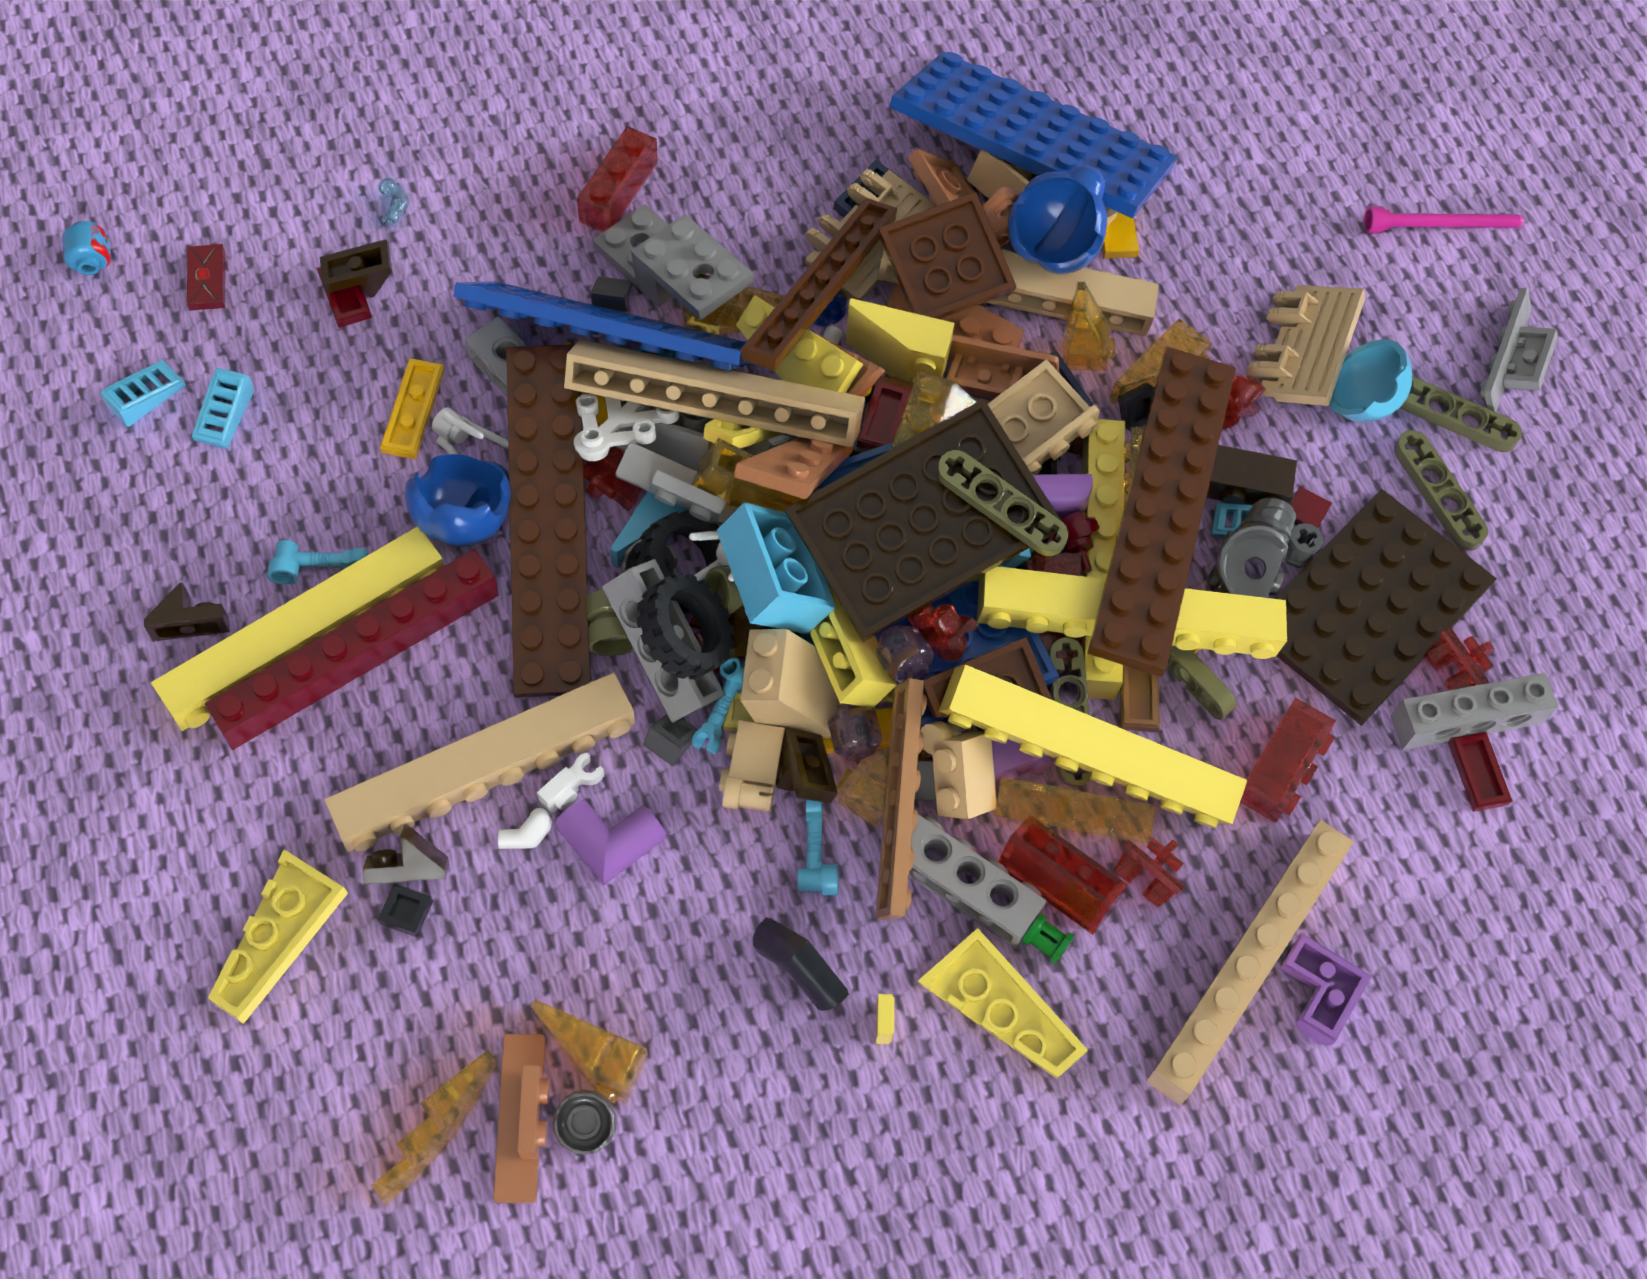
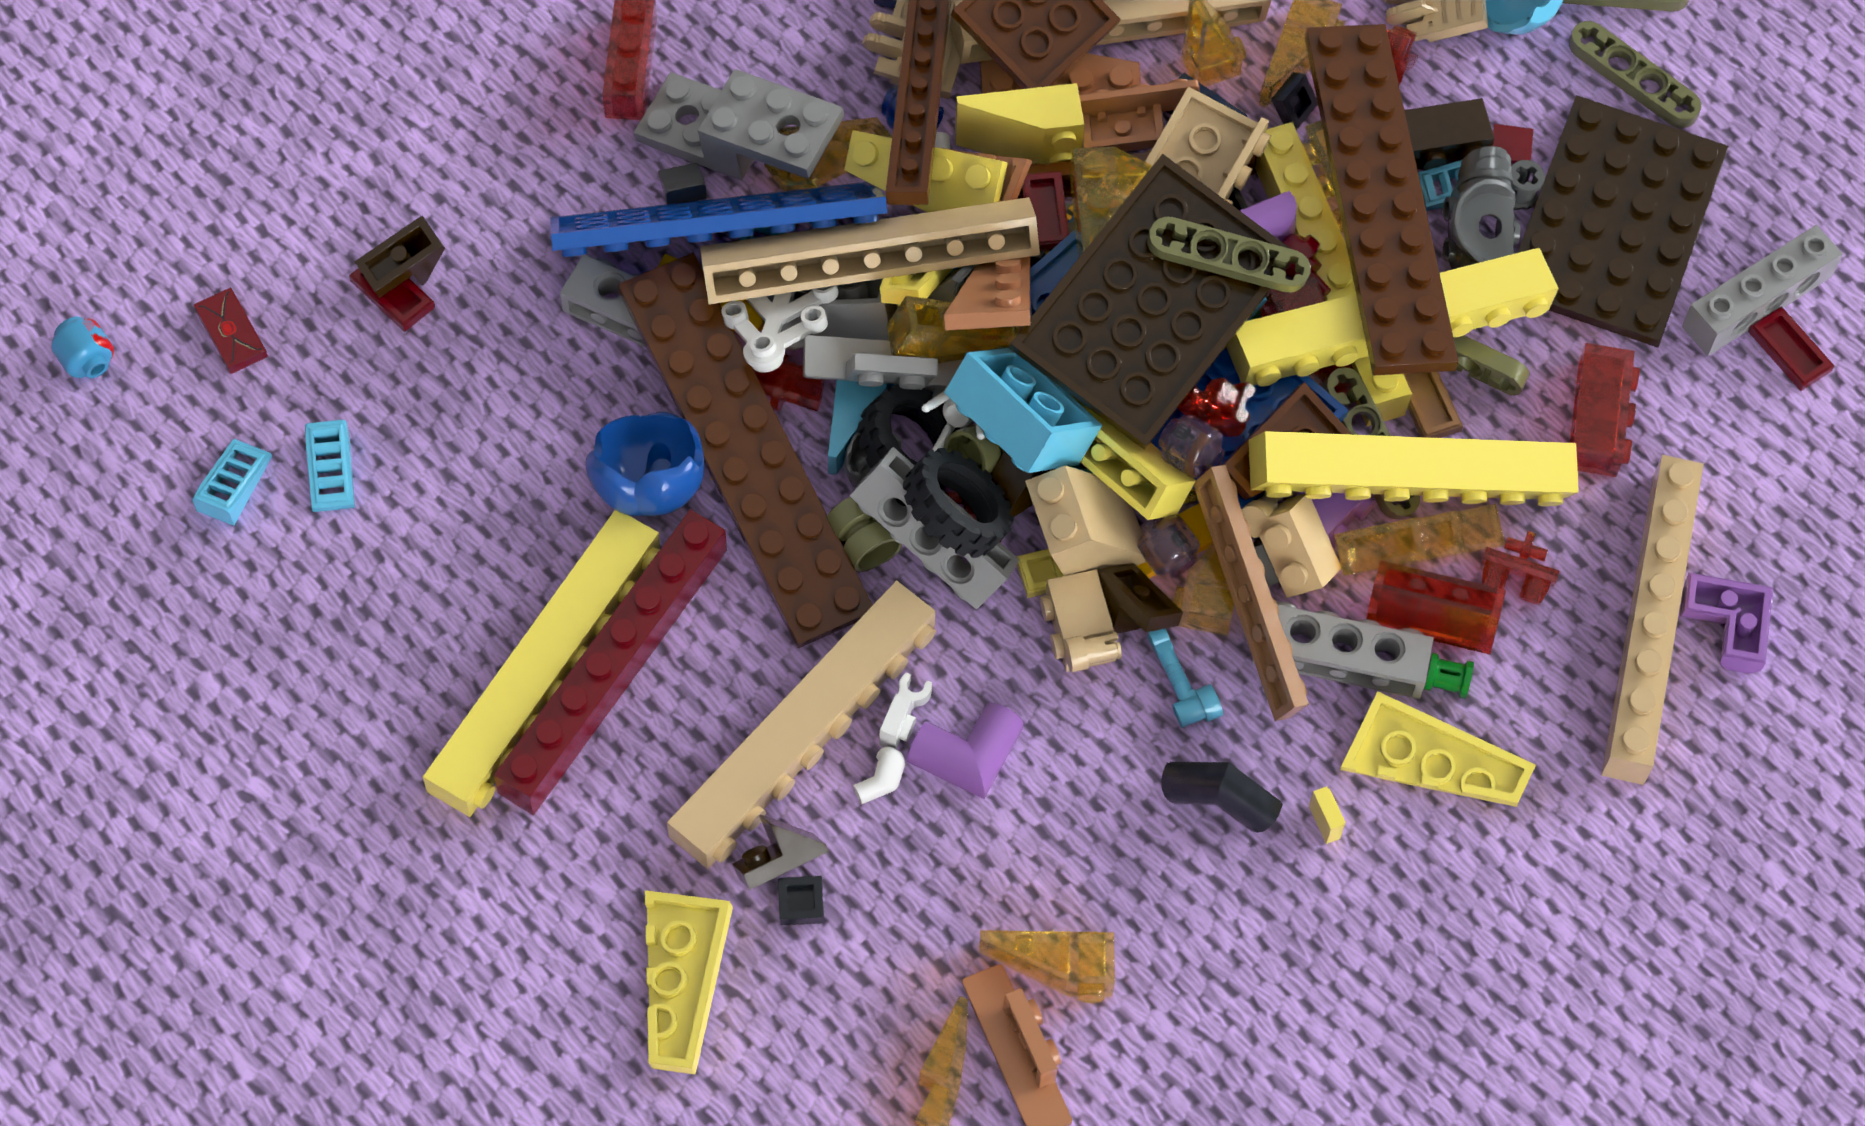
camera: 20 degrees left, 0 degrees up
(177, 619) = (410, 705): dark brown slope -> none
(287, 561) = (488, 600): medium azure brick -> none
(395, 199) = (393, 167): clear light blue arm -> none
(412, 408) = (533, 389): yellow tile -> none
(456, 428) = (592, 392): white plant -> none
(584, 1113) = (1085, 1019): flat silver hair -> none
(669, 739) = (979, 628): dark grey slope -> none
(733, 672) = (1027, 541): medium azure brick -> none
(1451, 650) = (1716, 236): clear red hips -> none

